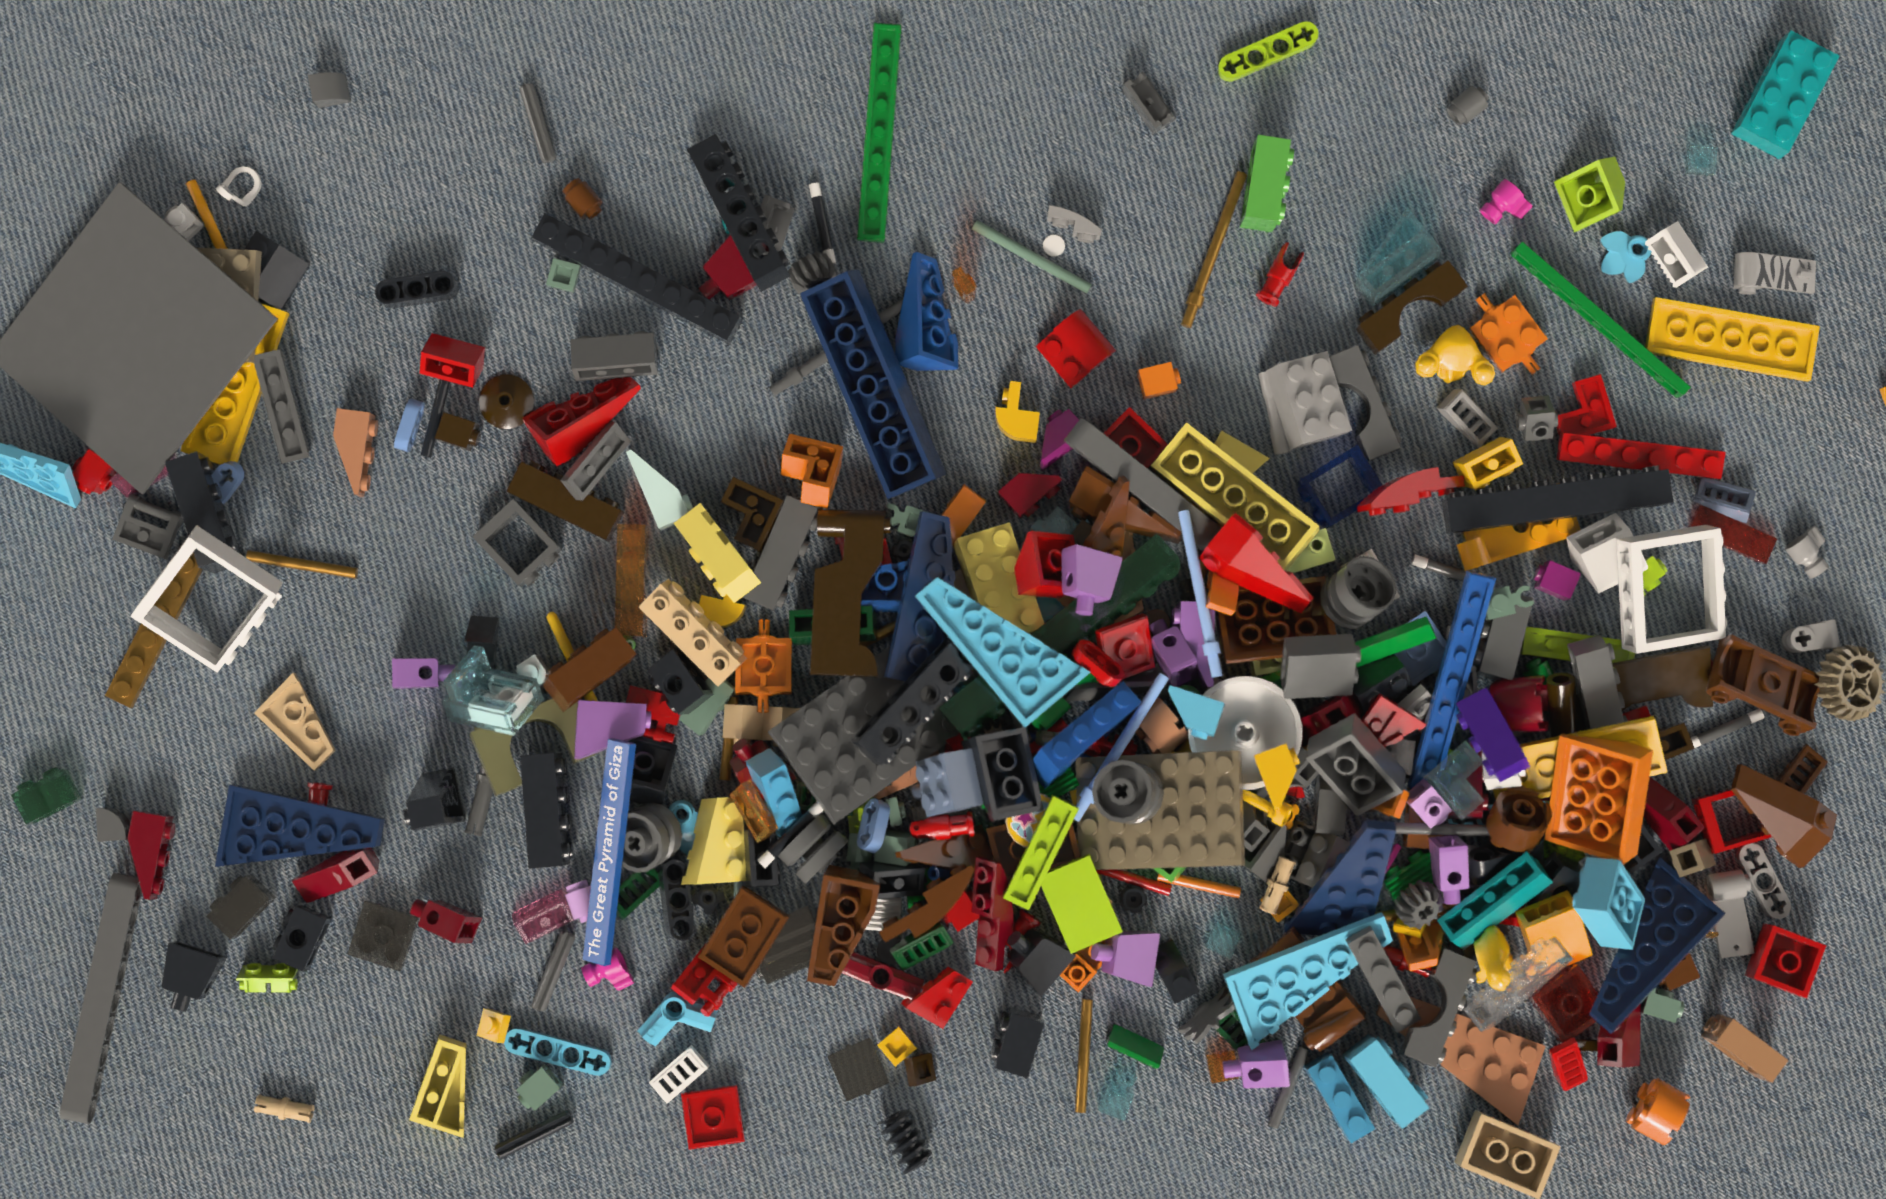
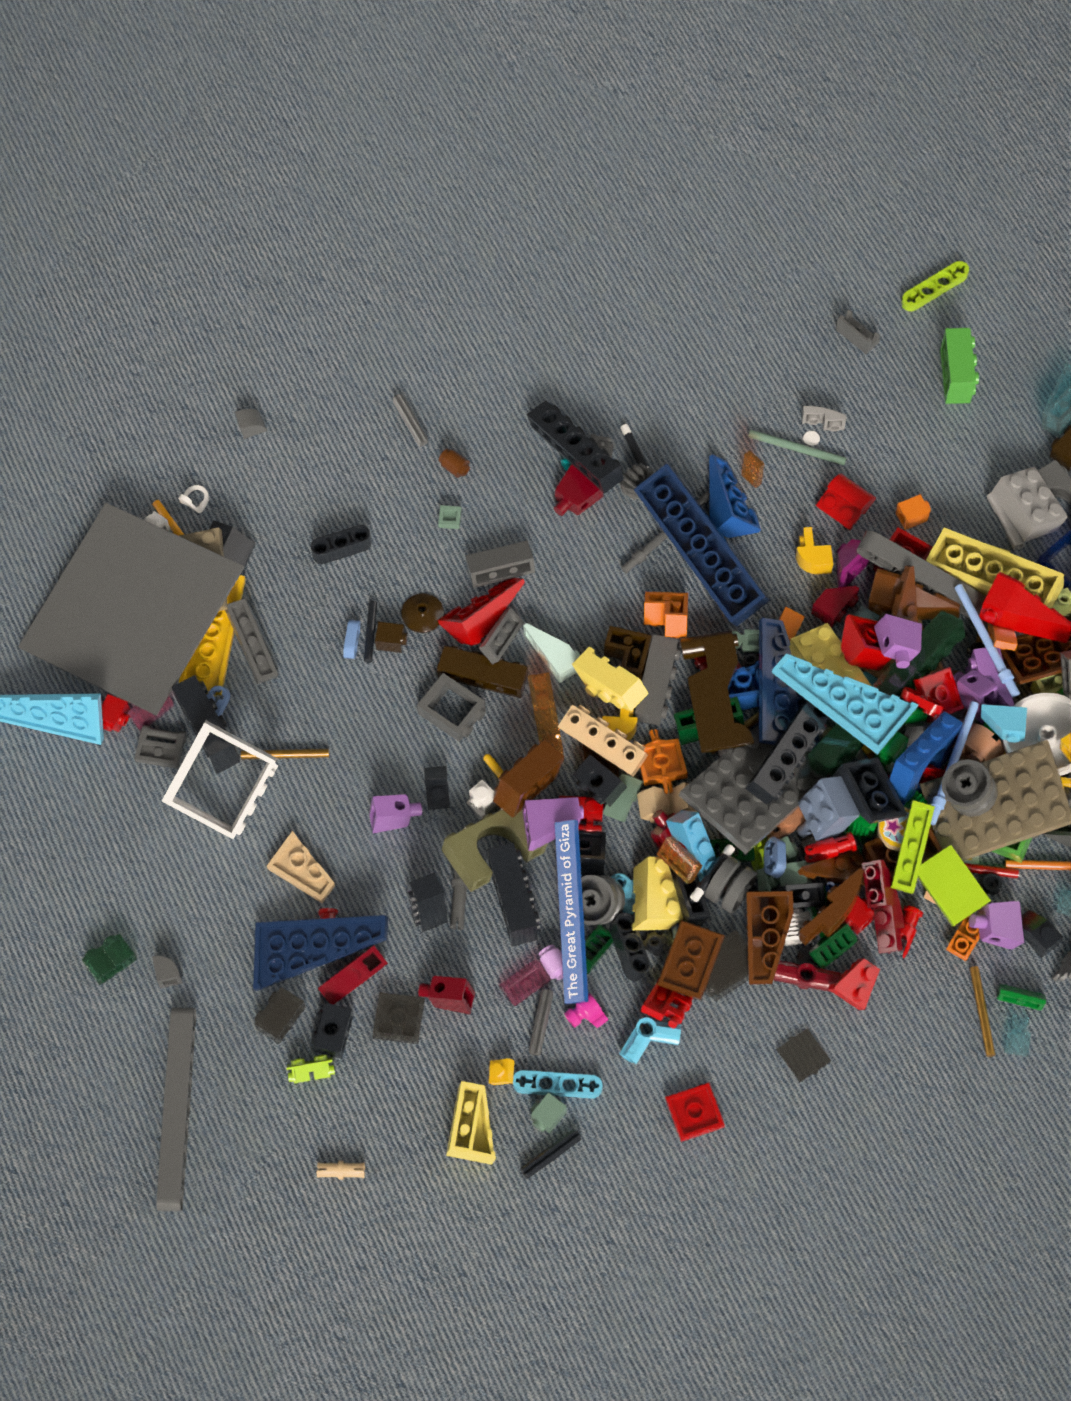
camera: 10 degrees left, 20 degrees down
(147, 644) = (176, 825): pearl gold plate -> none
(148, 843) = (197, 976): dark red slope -> none
(189, 973) = (246, 1074): black torso -> none
(353, 439) = (310, 655): nougat slope -> none
(452, 360) = (377, 586): red brick -> none
(489, 696) = (452, 815): clear light blue brick -> none
(637, 279) = (507, 509): black brick -> none
(697, 1060) = (673, 1068): white slope -> none
(727, 751) = (646, 837): pearl gold bar -> none
(879, 132) = (664, 386): green tile -> none
(897, 1046) = (831, 1029): yellow plate -> none
(905, 1140) = (856, 1100): black piece -> none
(920, 1069) = (854, 1043): dark brown plate -> none
(1018, 1041) = (928, 998): black brick -> none
(1038, 958) = (928, 938): black torso -> none
(1196, 298) = (926, 453): pearl gold bar -> none
(1278, 278) = (983, 429): red piece -> none

